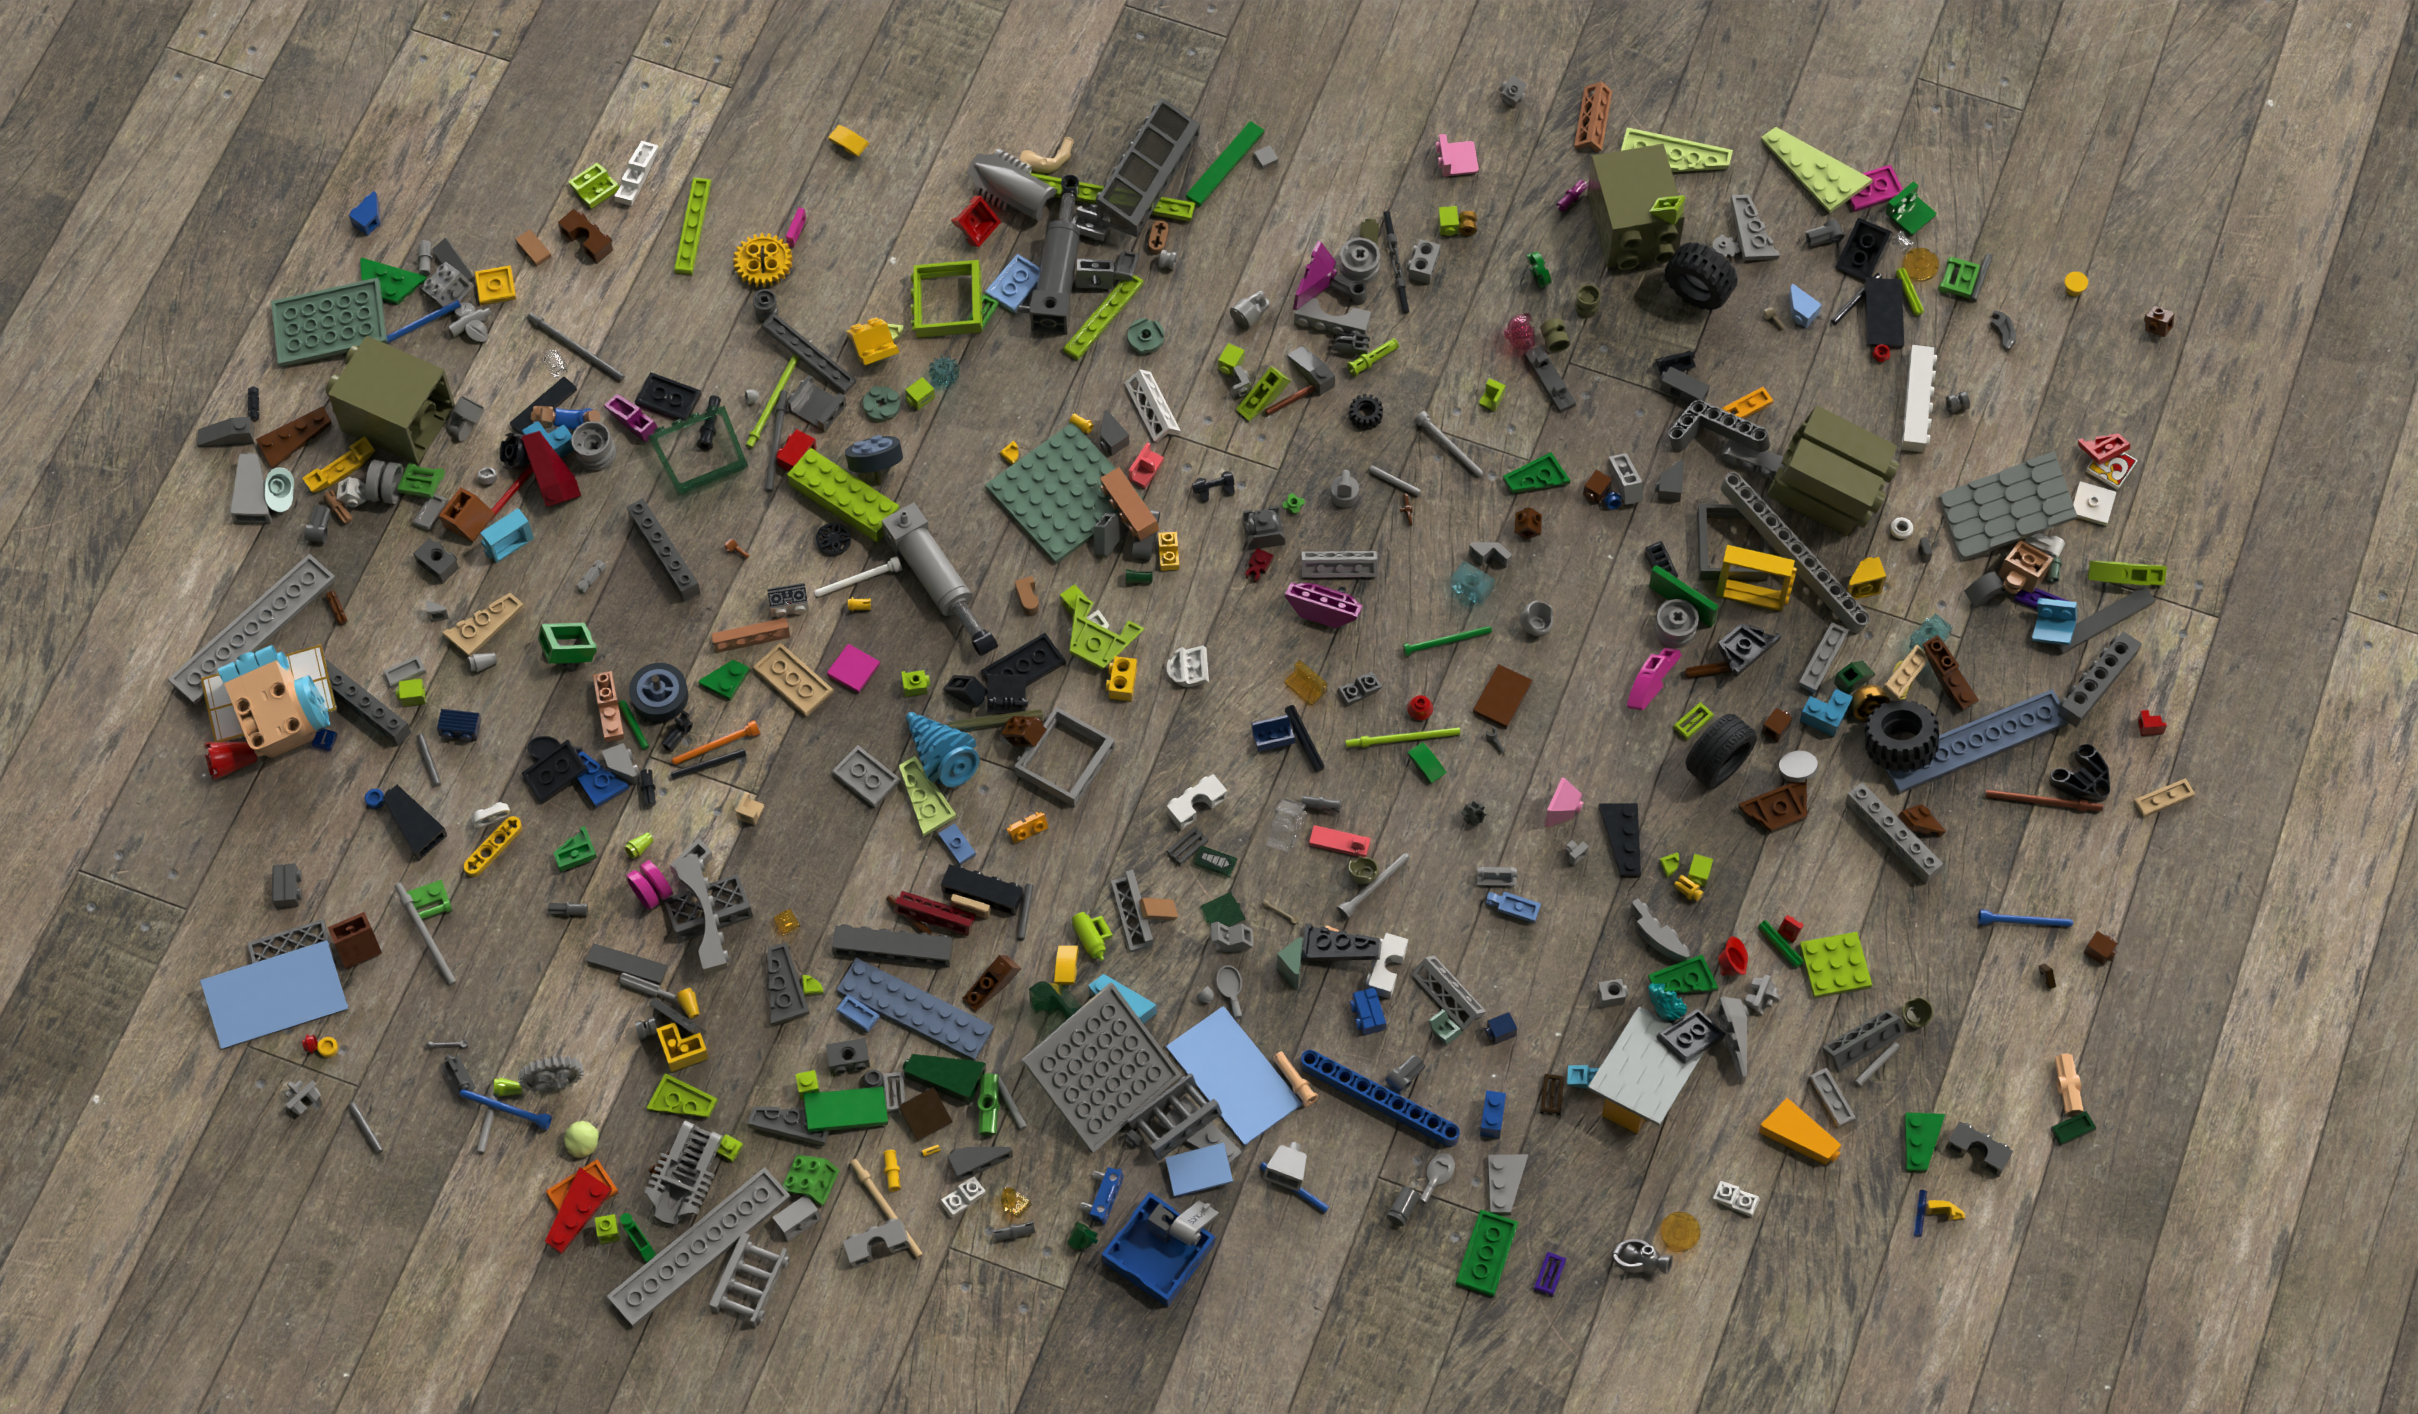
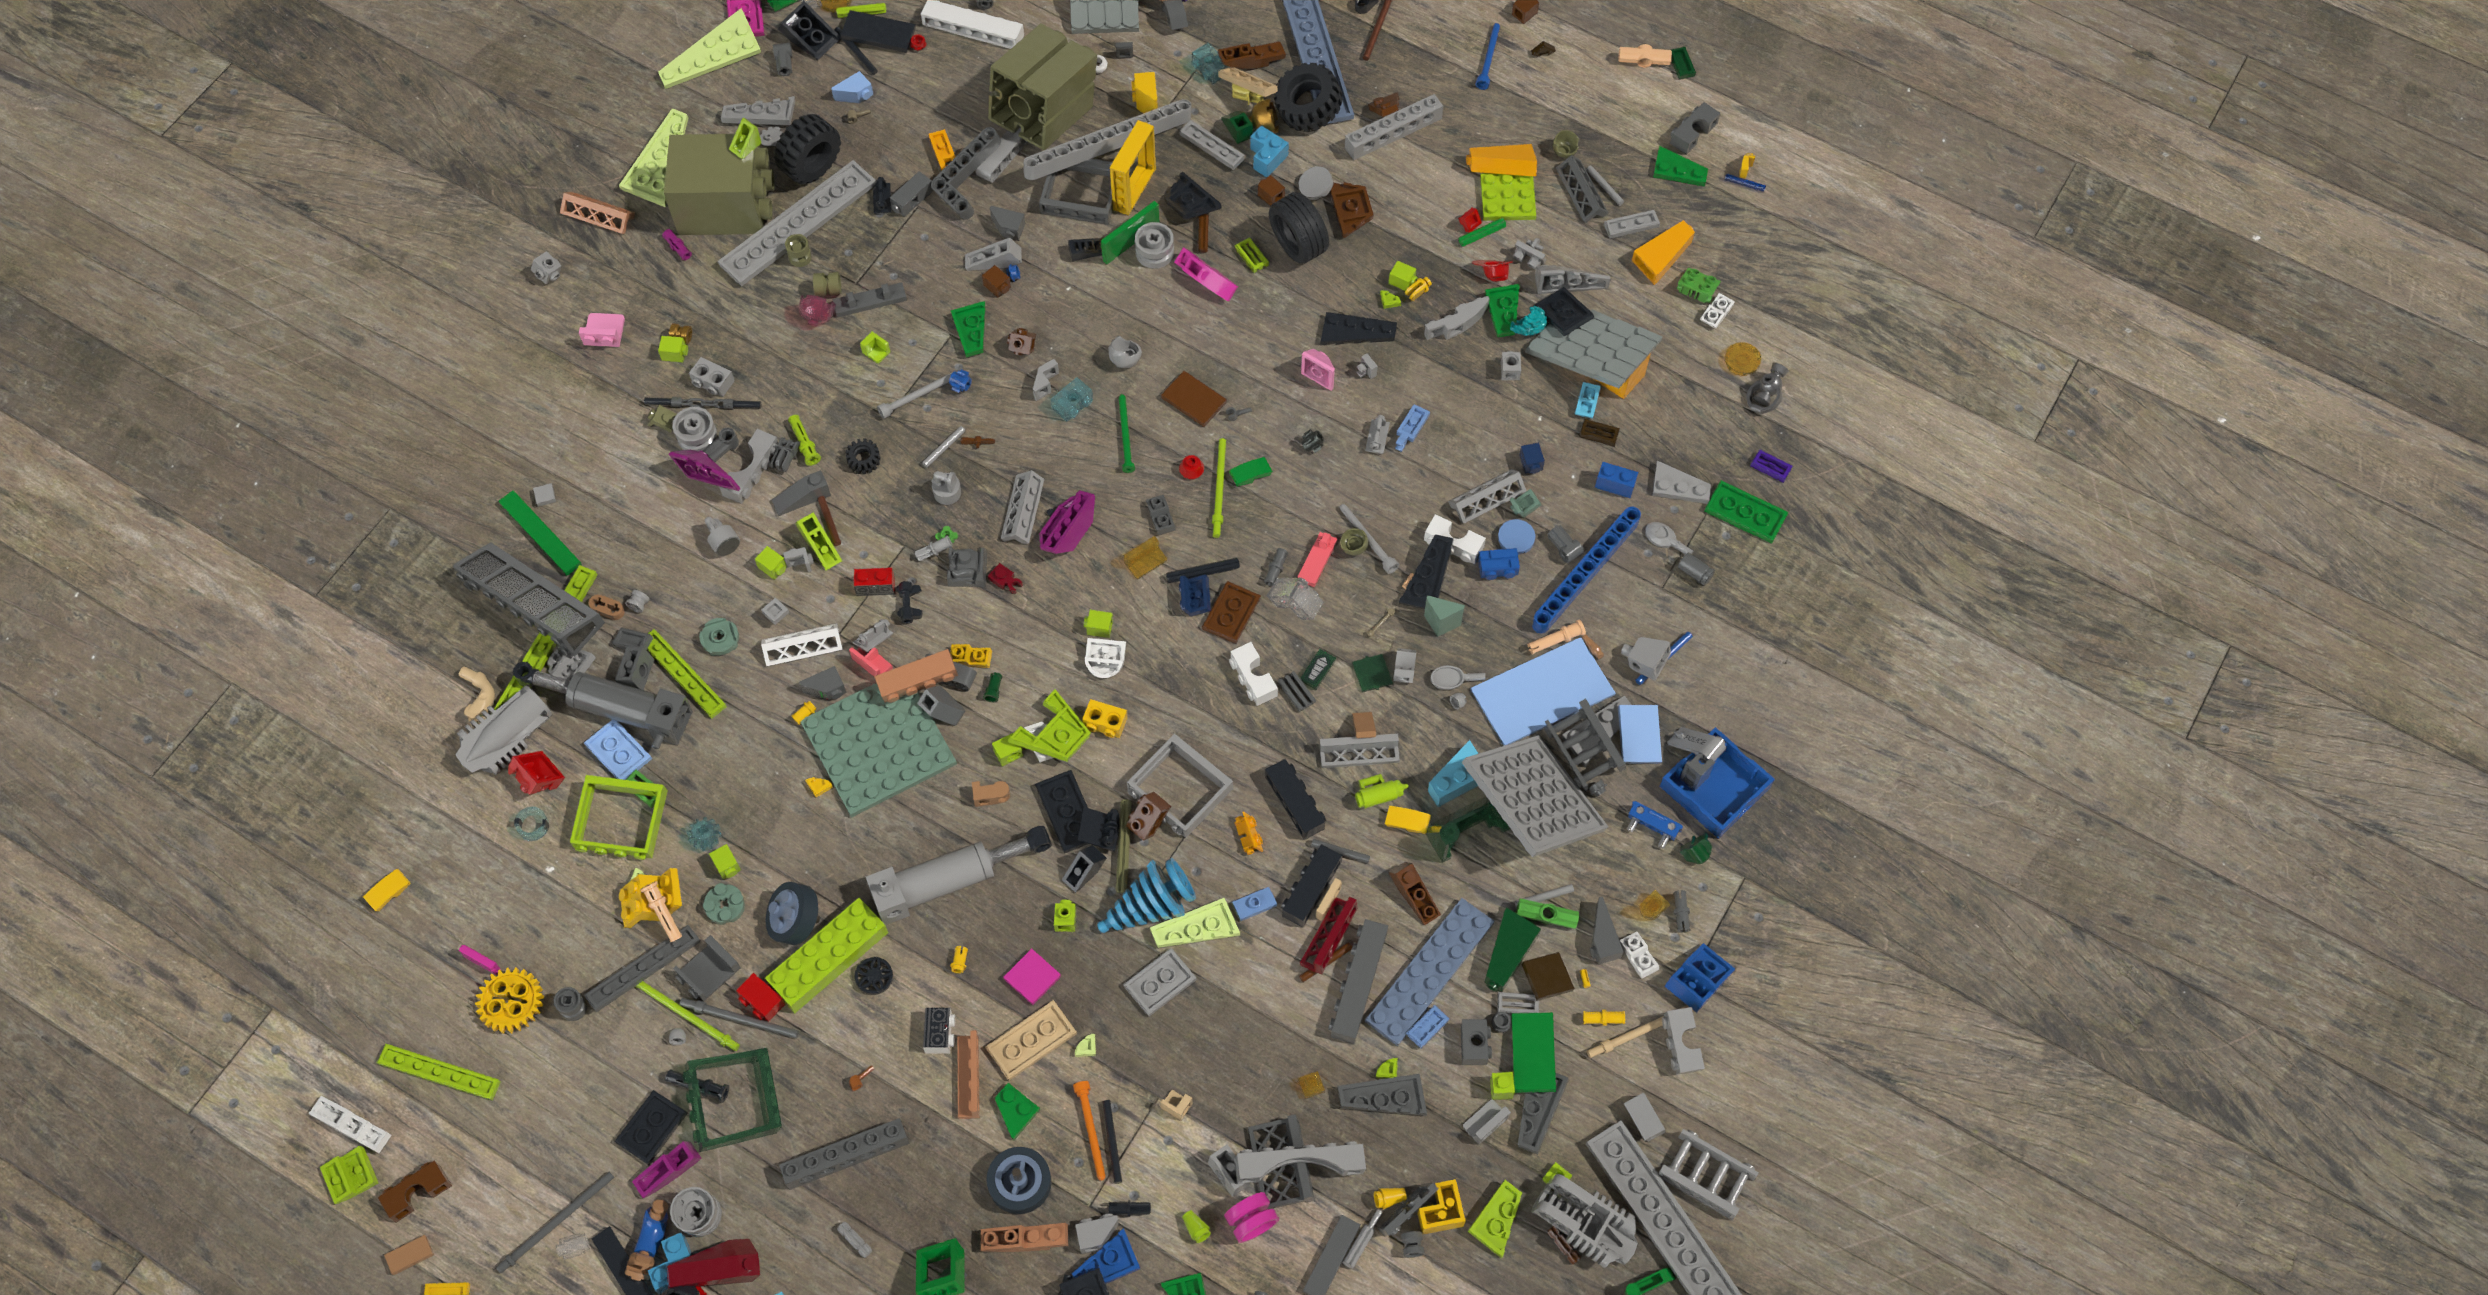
camera: 80 degrees left, 0 degrees up
(633, 724) = (1049, 1215): green bar -> none
(682, 726) = (1073, 1171): black bar -> none
(773, 1078) = (1486, 1121): none -> light grey panel
(794, 726) = (1086, 1047): none -> yellowish green tile
(811, 1177) = (1602, 1100): bright green bracket -> none
(862, 344) = (657, 902): none -> light nougat pin
(892, 565) = (921, 918): white piece -> none
(931, 223) = (525, 813): none -> clear light blue piece
(947, 1254) = (1699, 977): none -> blue slope
(1069, 860) = (1295, 799): none -> black brick
(1169, 463) = (873, 636): none -> light grey hinge
(1179, 374) = (775, 611): none -> light grey tile
(1224, 654) = (1099, 623): none -> lime brick
(1228, 450) = (874, 581): none -> red brick
(1263, 772) = (1231, 612): none -> reddish brown tile
(1276, 494) = (933, 548): none -> light grey axle
(1290, 1118) = (1593, 647): none -> medium nougat piece
(1406, 1027) = (1517, 535): none -> medium blue tile
(1470, 477) = (960, 380): none -> blue gear
(1538, 269) = (752, 281): green plate -> none
(1626, 294) = (801, 218): none -> light grey plate
(1767, 1174) = (1698, 282): none -> bright green hinge
(1877, 951) = (1503, 160): none -> light orange slope

